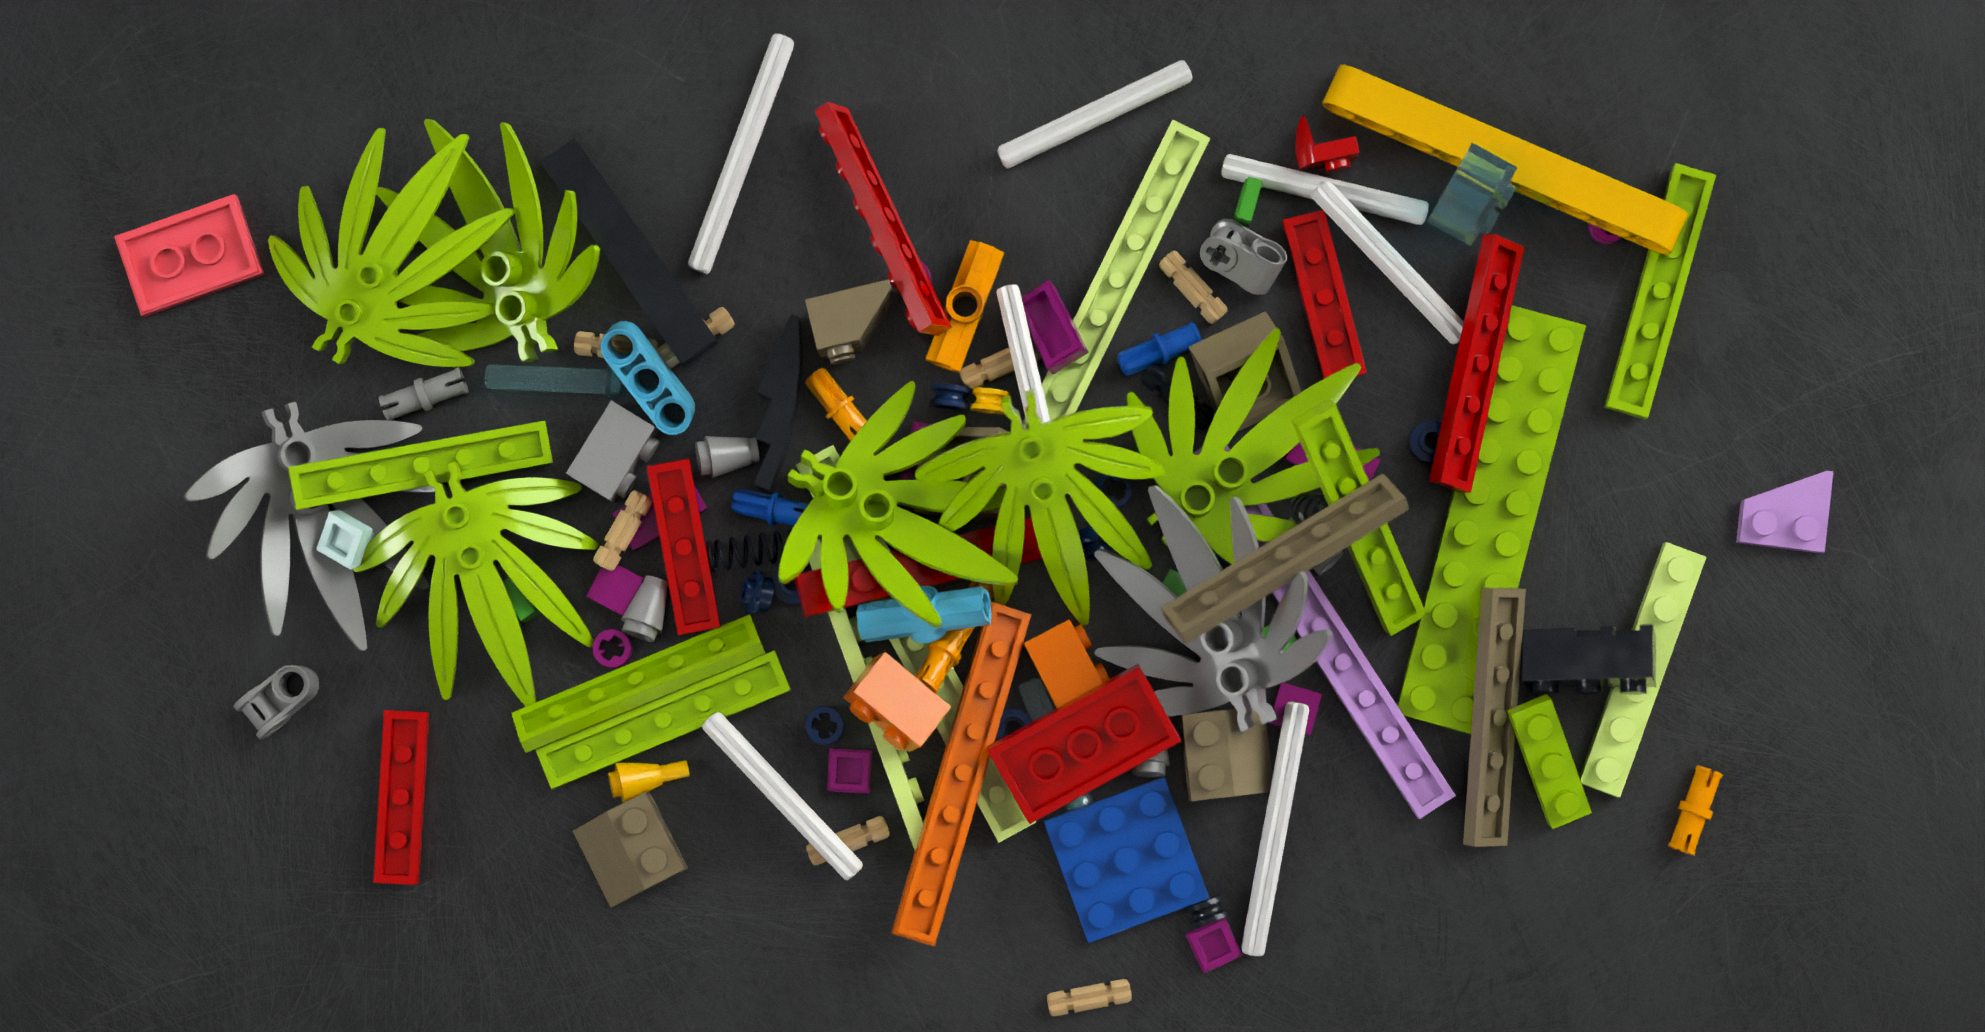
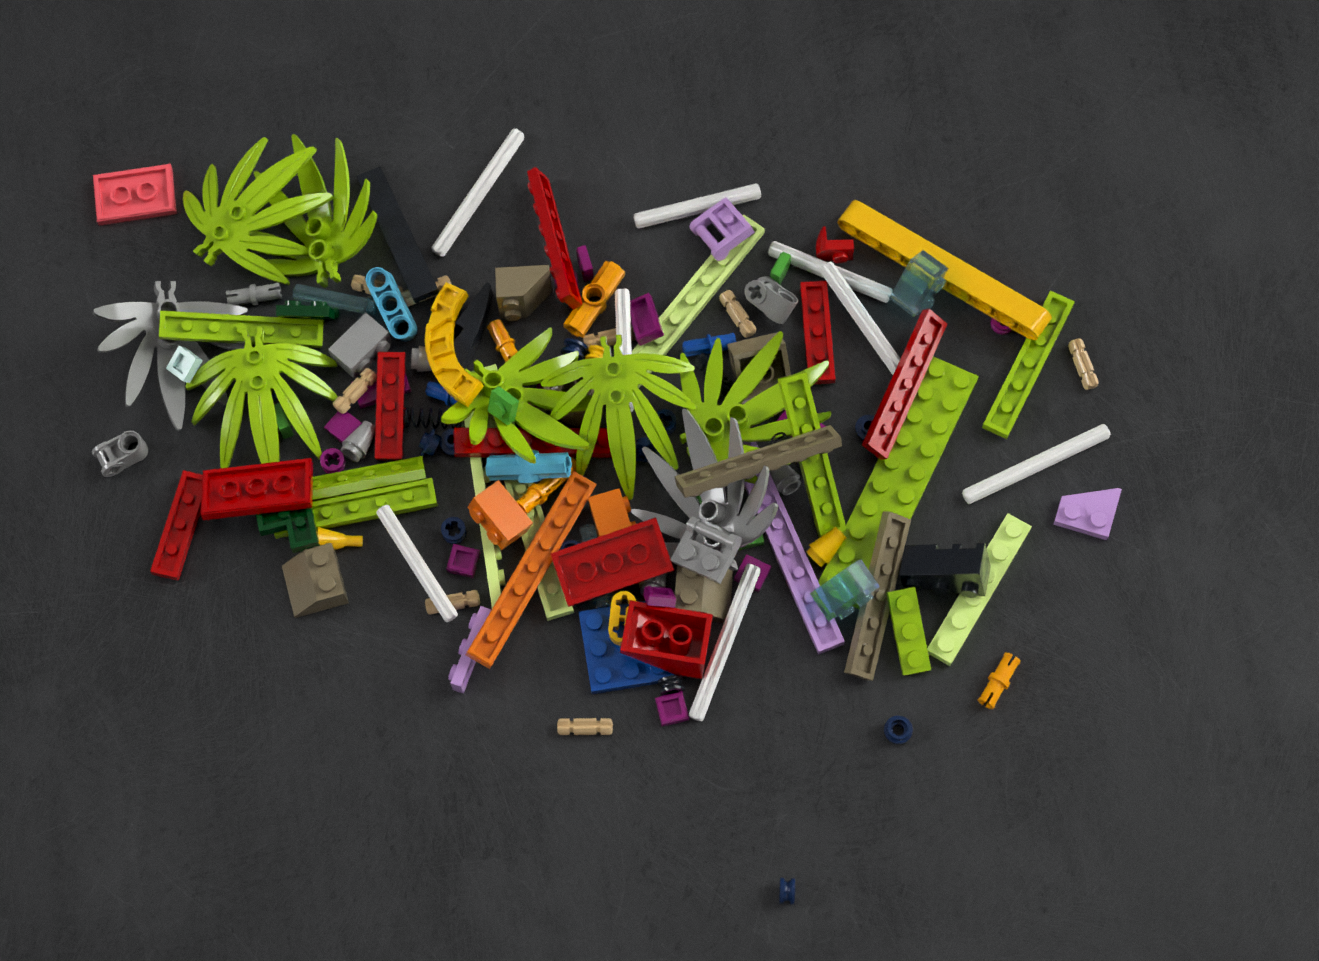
camera: 15 degrees right, 15 degrees down
(510, 726) = (257, 489): none -> red tile
(518, 415) = (318, 310): none -> dark green plate
(576, 758) = (298, 523): none -> dark green plate
(743, 439) = (440, 346): none -> yellow tile
(866, 528) = (503, 405): none -> bright green plate
(885, 953) = (461, 673): none -> lavender plate
(937, 248) = (584, 263): none -> magenta tile
(1104, 826) = (615, 615): none -> yellow beam
(1154, 142) = (729, 224): none -> lavender plate
(1166, 785) = (659, 596): none -> magenta tile
(1190, 846) = (667, 638): none -> red slope
(1221, 718) = (702, 558): none -> light grey plate
(1399, 652) = (826, 546): none -> yellow cone
(1447, 725) = (844, 590): none -> clear light blue brick
(1570, 919) = (900, 721): none -> dark blue plate
(1696, 452) = (1036, 463): none -> white axle
(1743, 273) = (1083, 364): none -> tan axle

